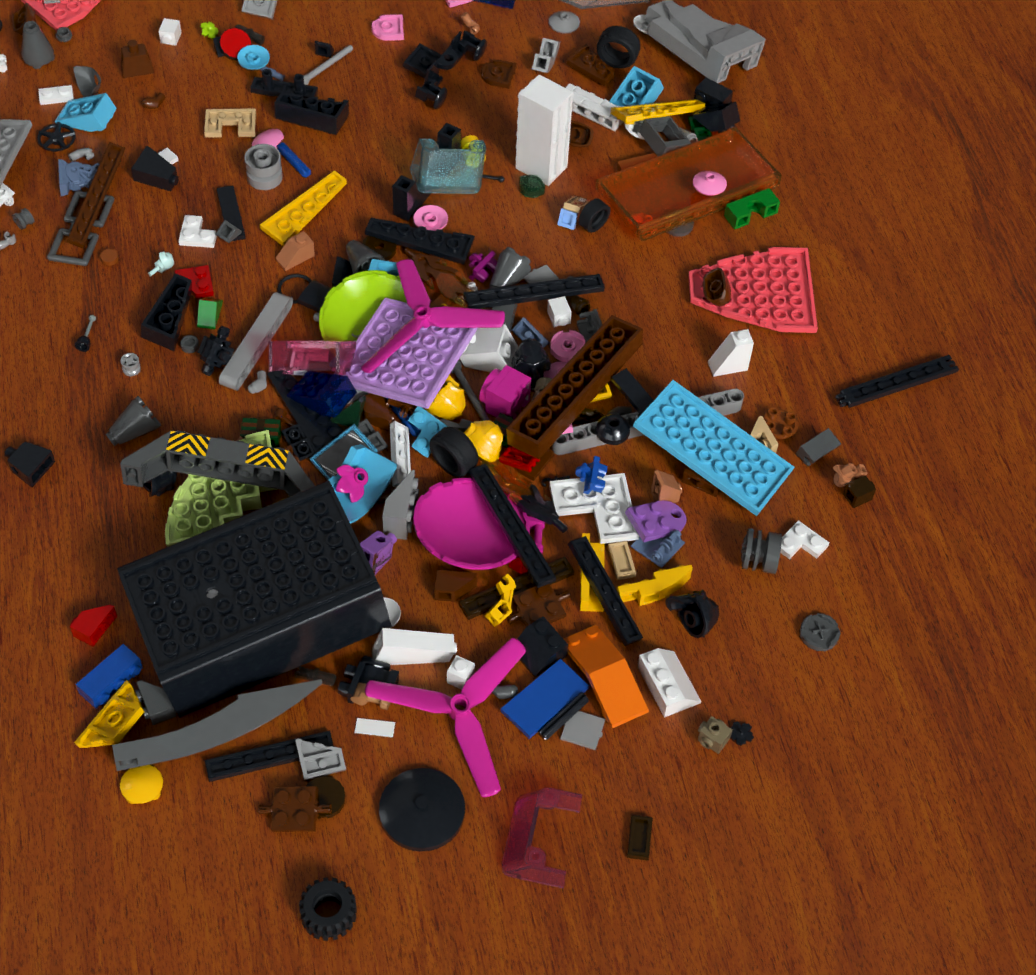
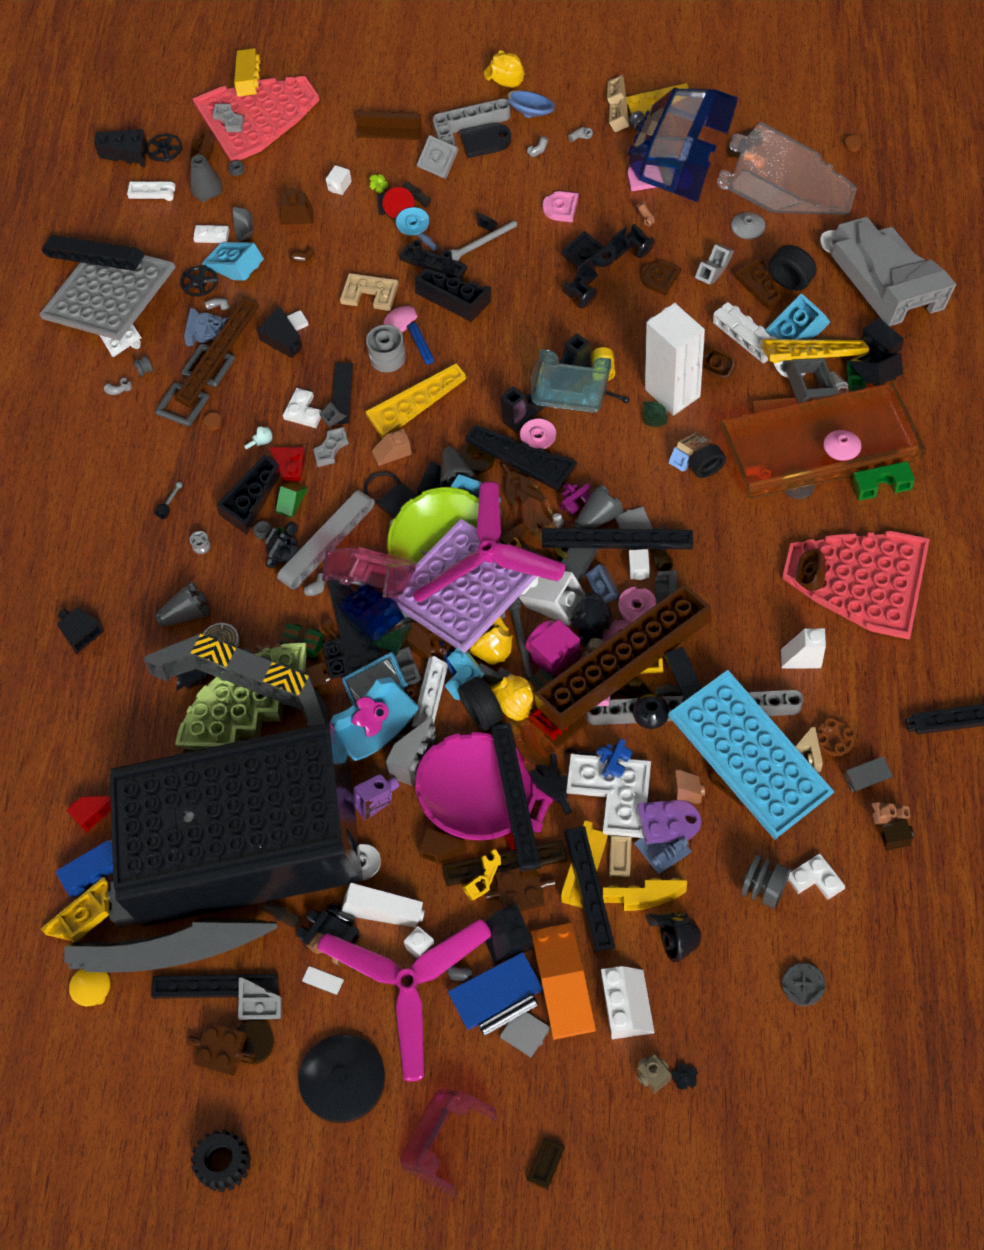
camera: 25 degrees right, 5 degrees up
(232, 265) = (326, 452): none -> light grey tile

